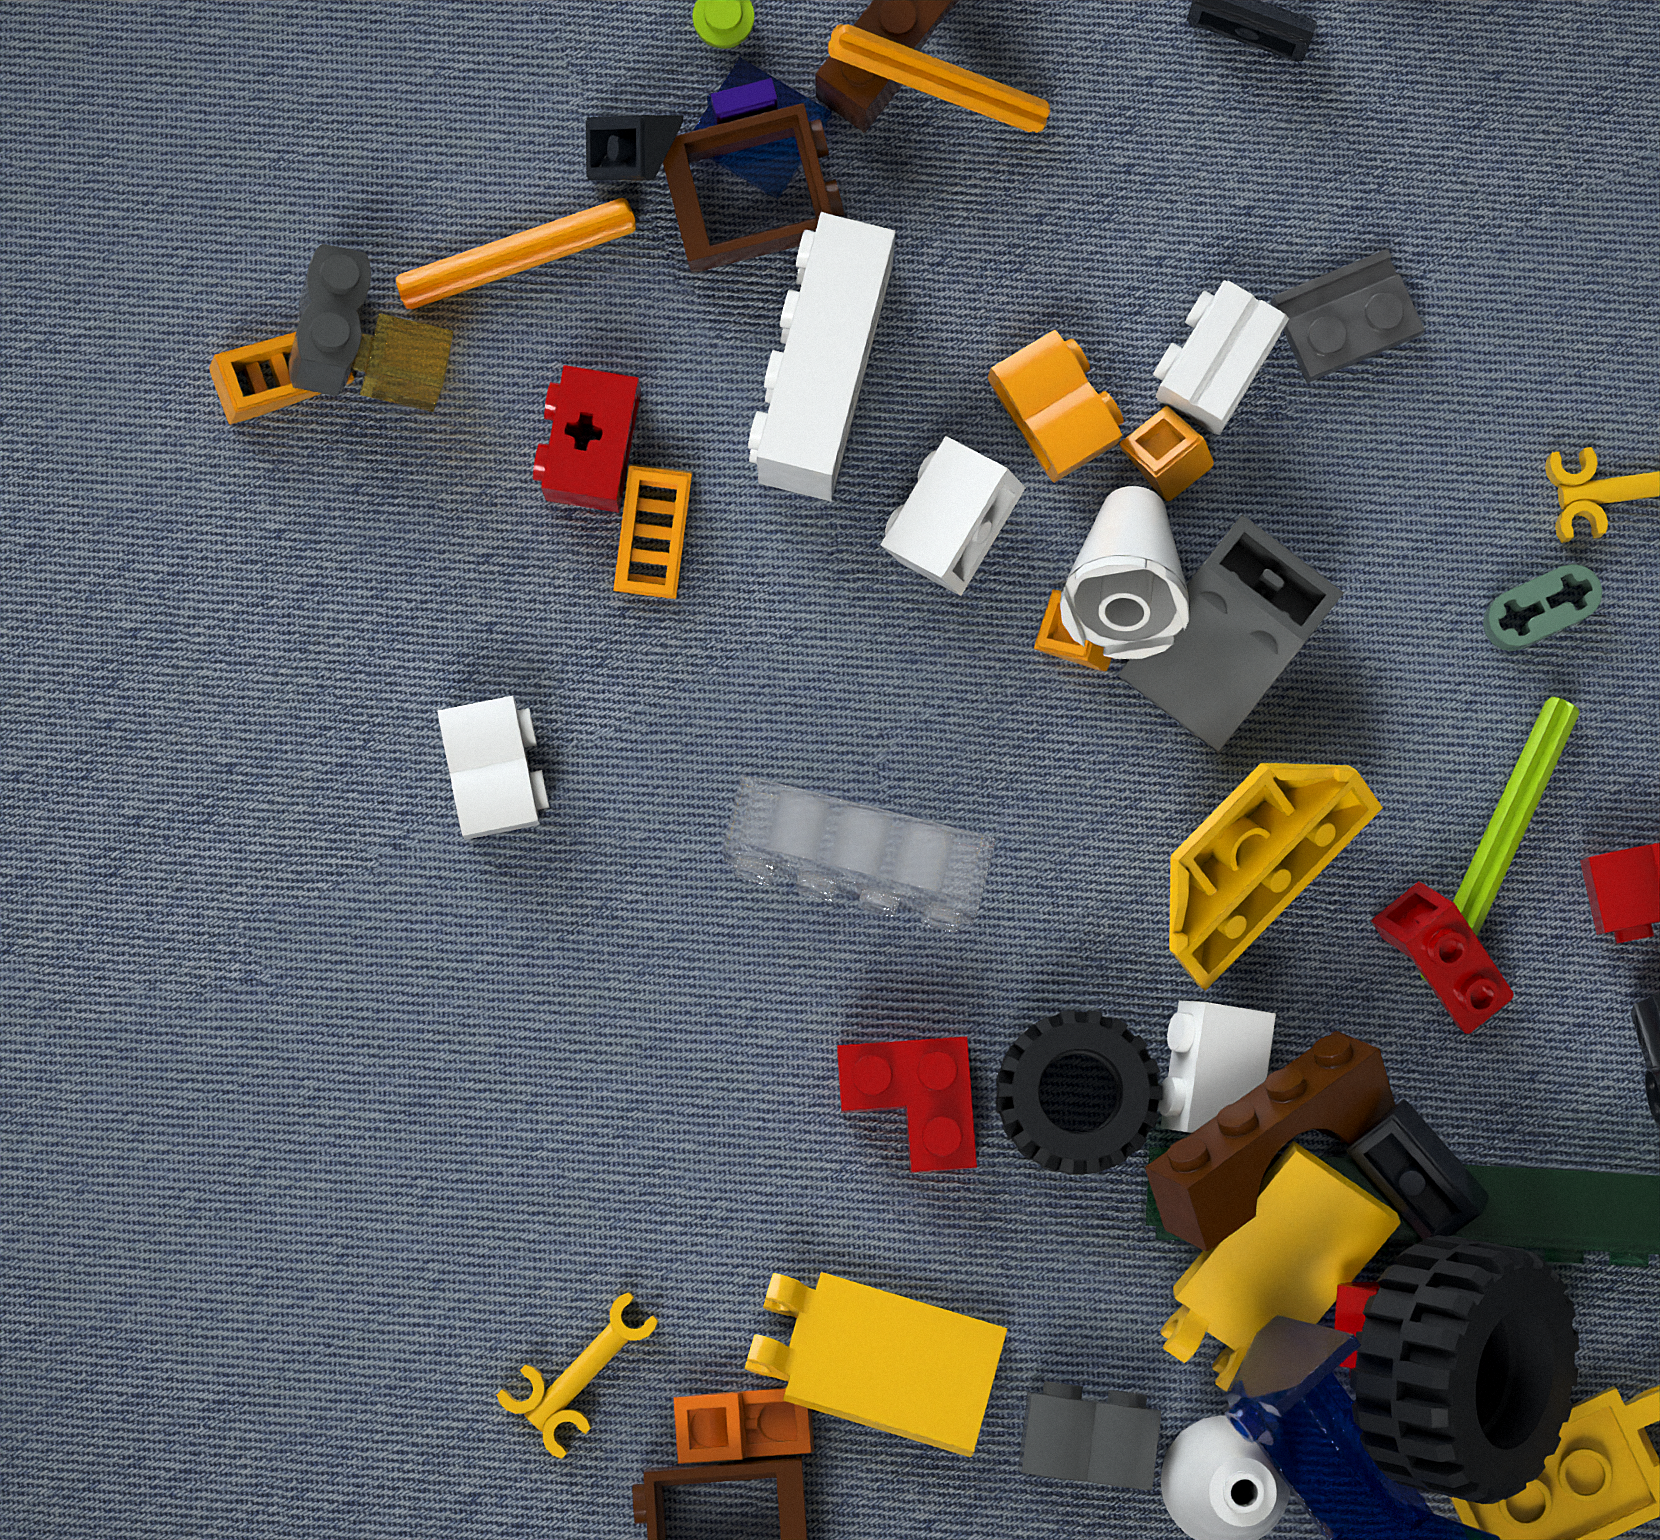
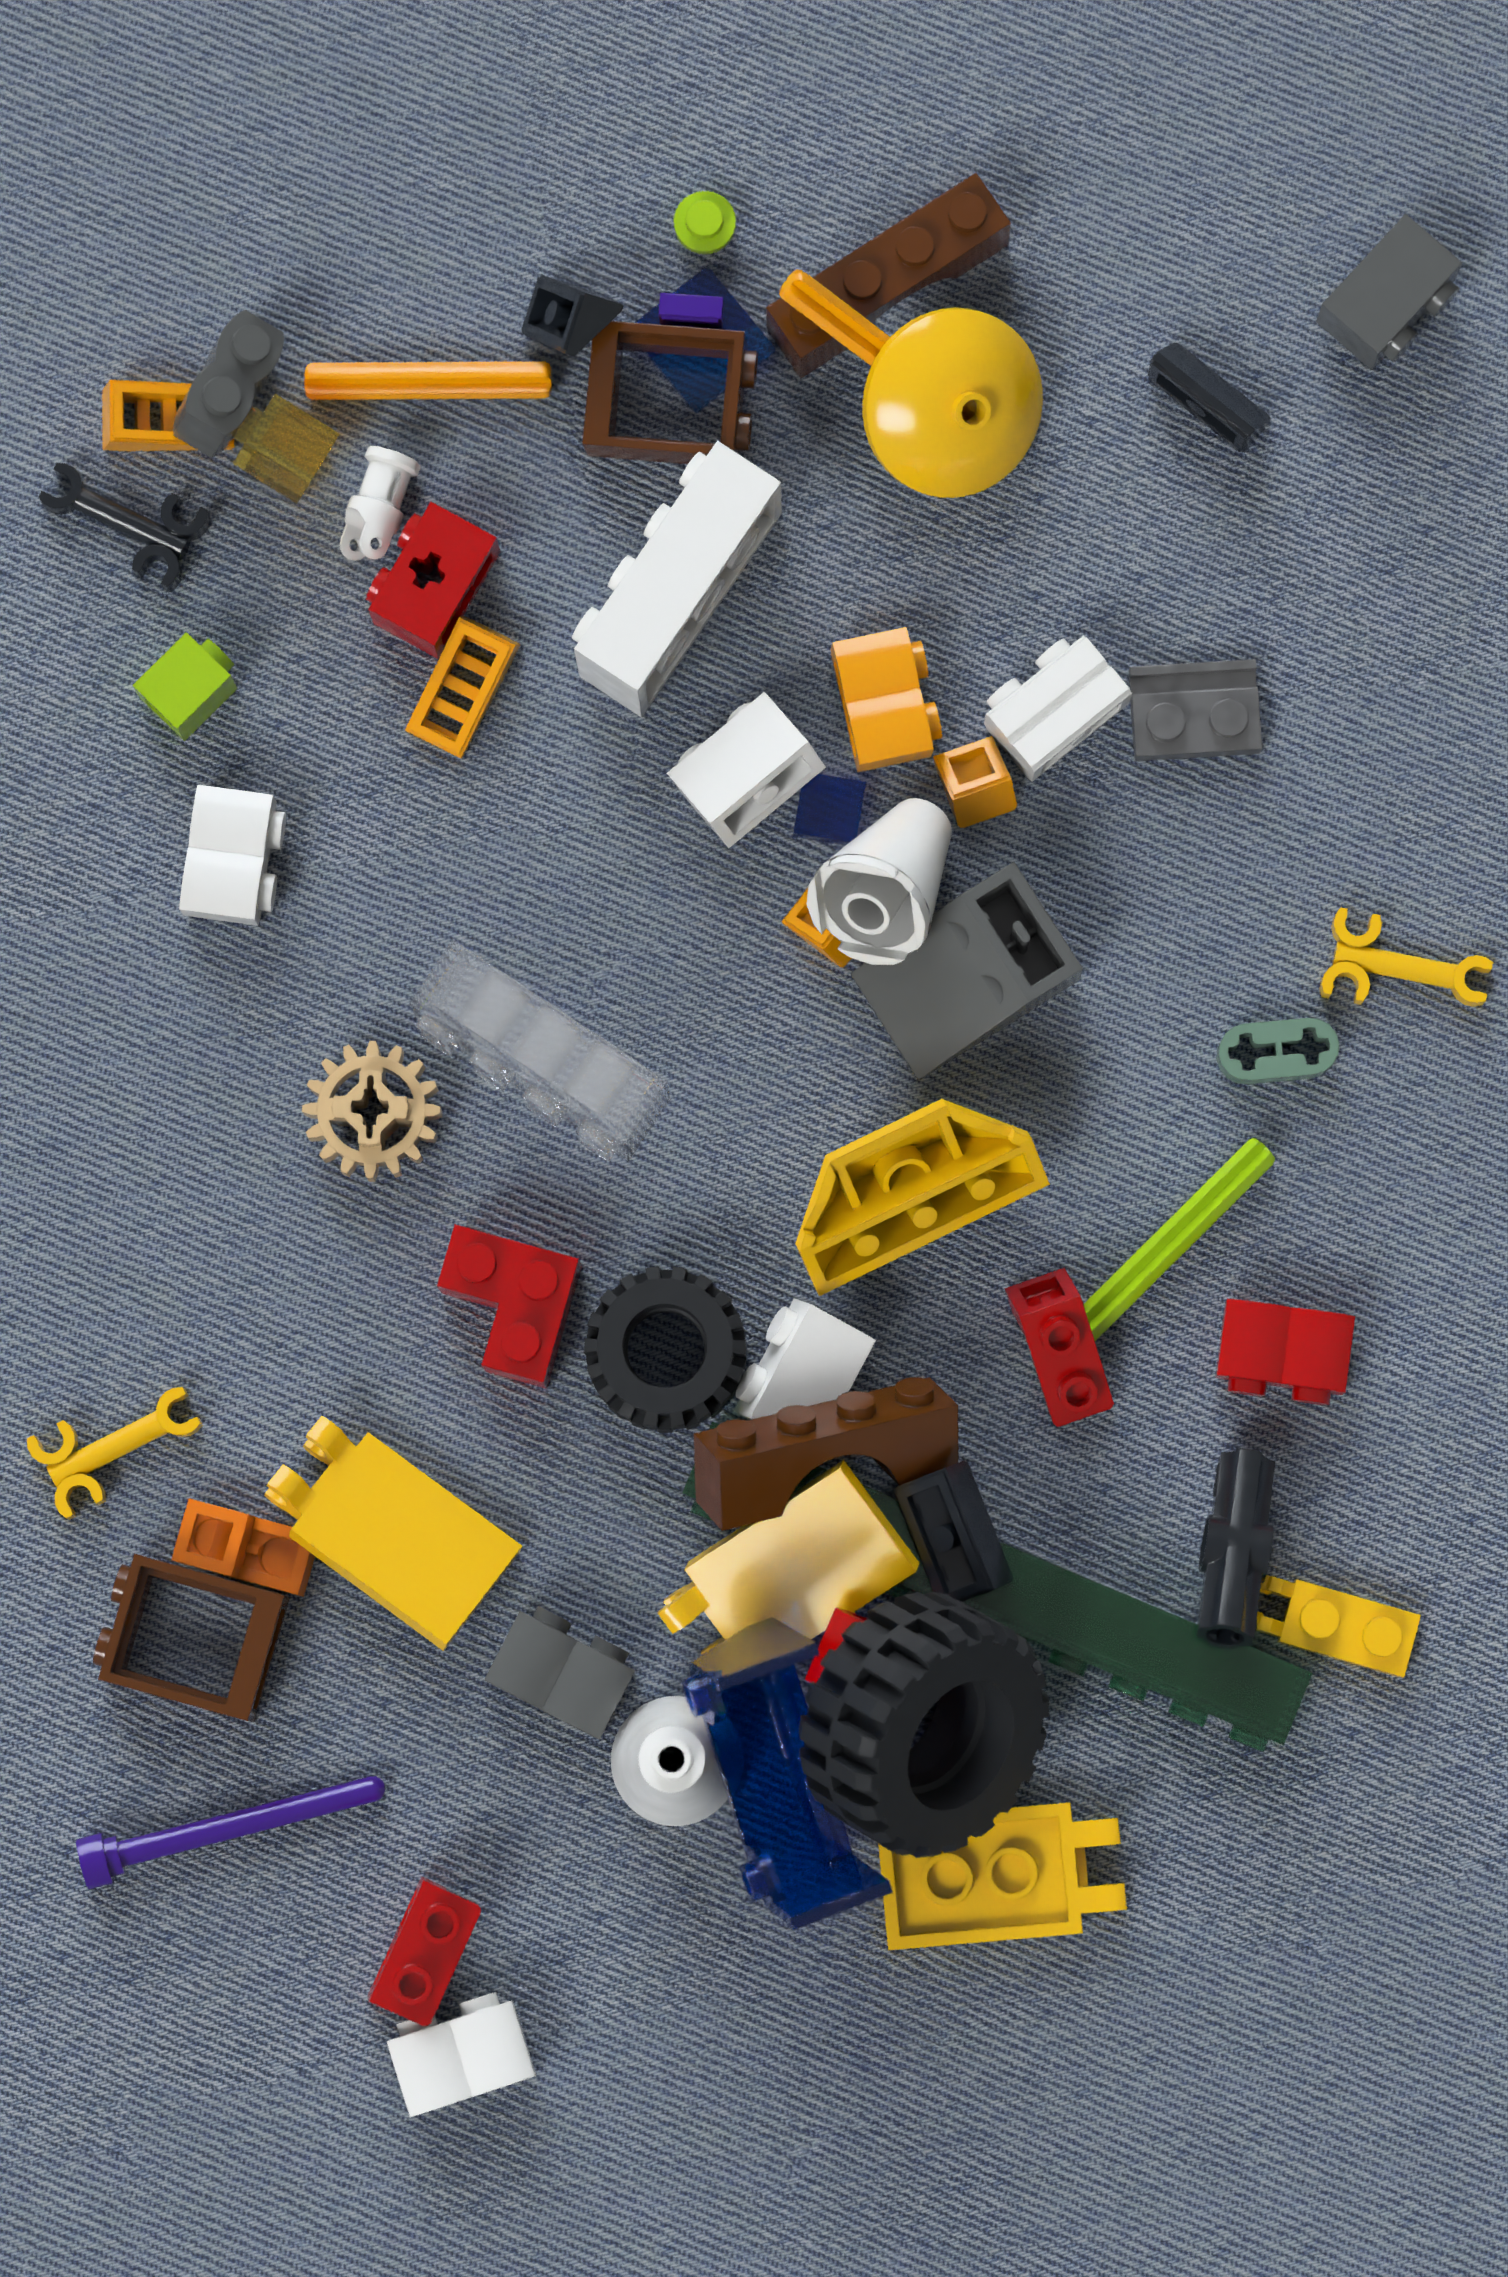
camera: 25 degrees right, 0 degrees up
(321, 491) = (166, 542): none -> black bar
(391, 619) = (187, 684): none -> lime brick
(511, 385) = (377, 506): none -> white piece
(685, 972) = (343, 1111): none -> tan gear
(992, 104) = (919, 394): none -> yellow dish
(1042, 527) = (829, 809): none -> clear blue tile

